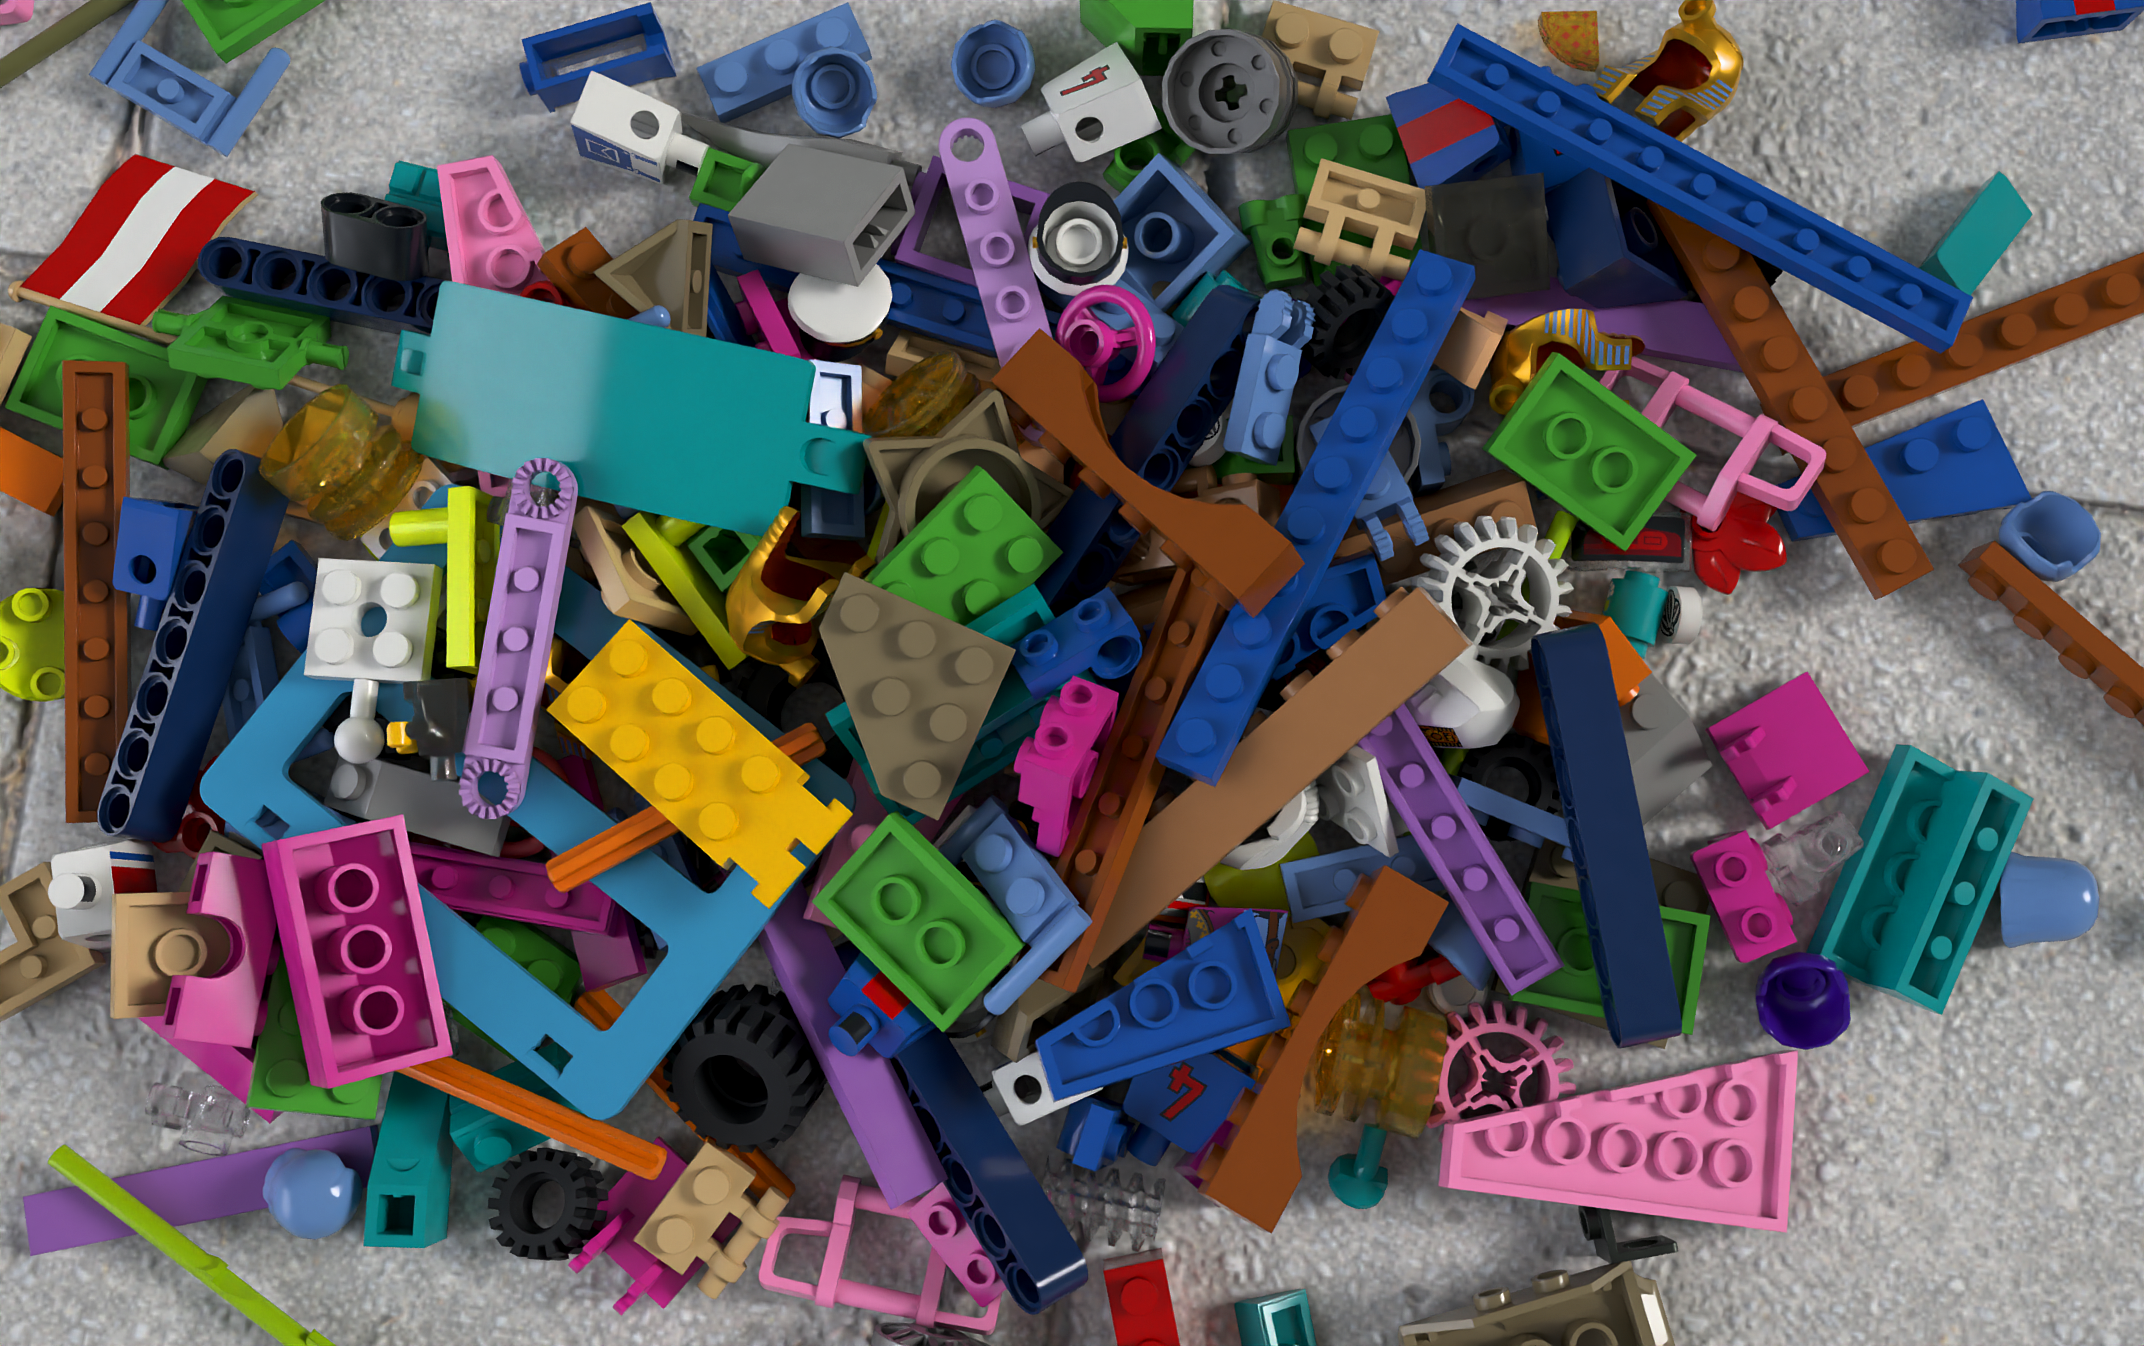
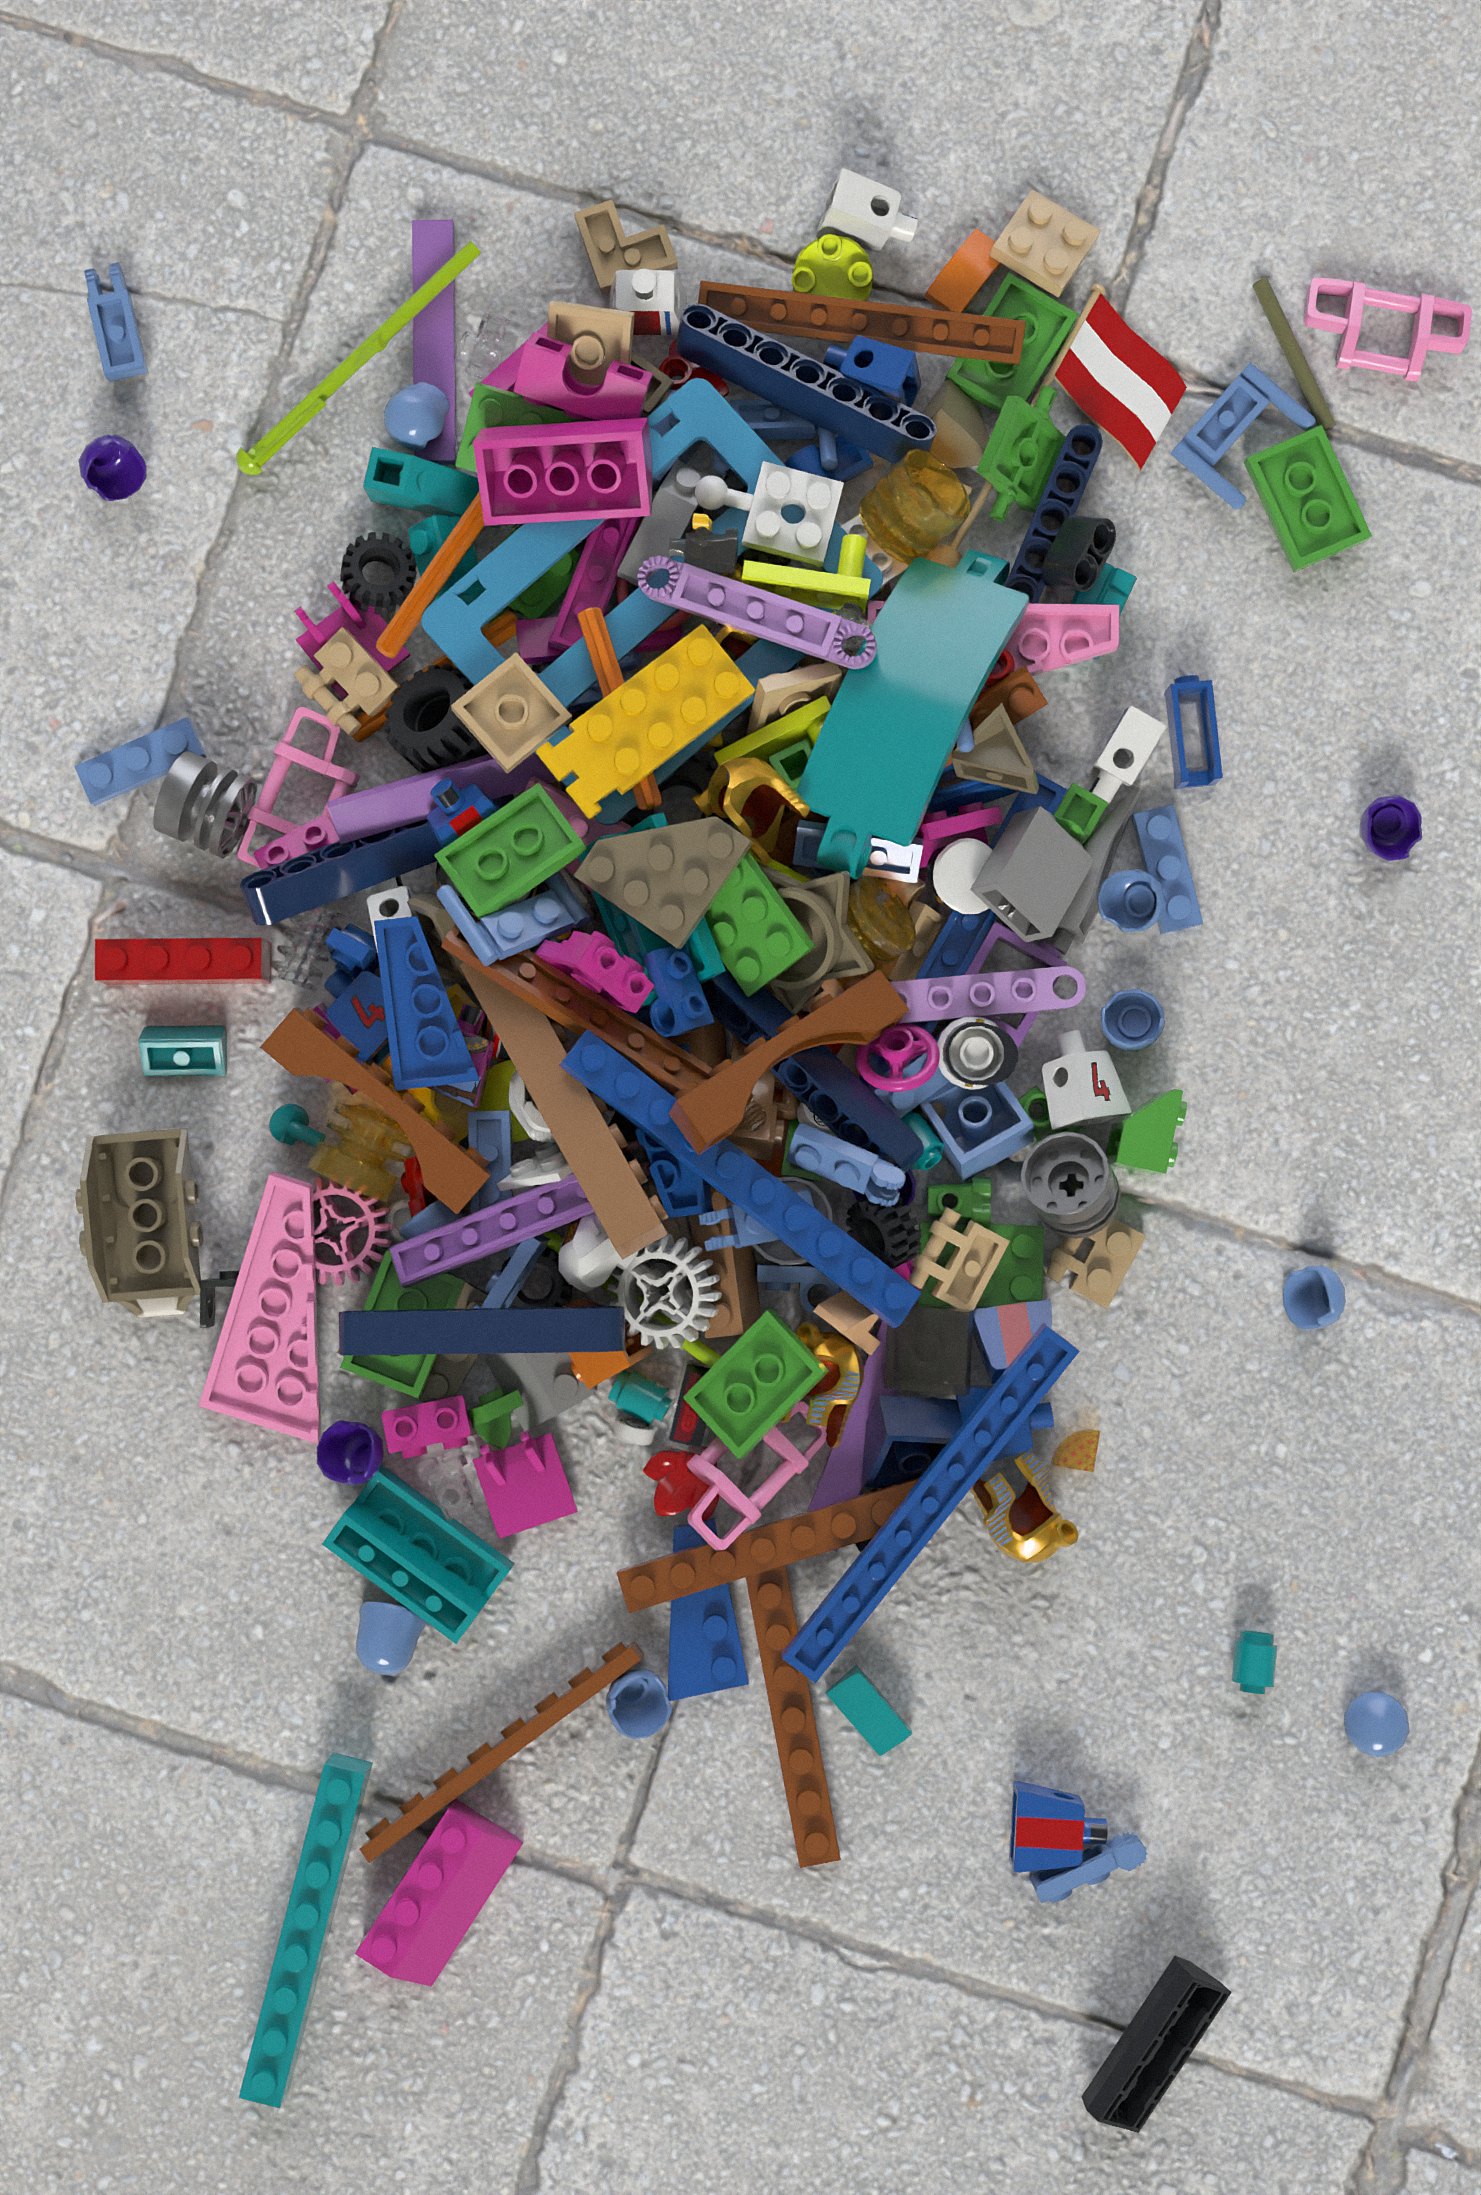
camera: 95 degrees right, 5 degrees up
(717, 959) = (511, 712): none -> tan plate
(1700, 811) = (492, 1416): none -> bright green plate

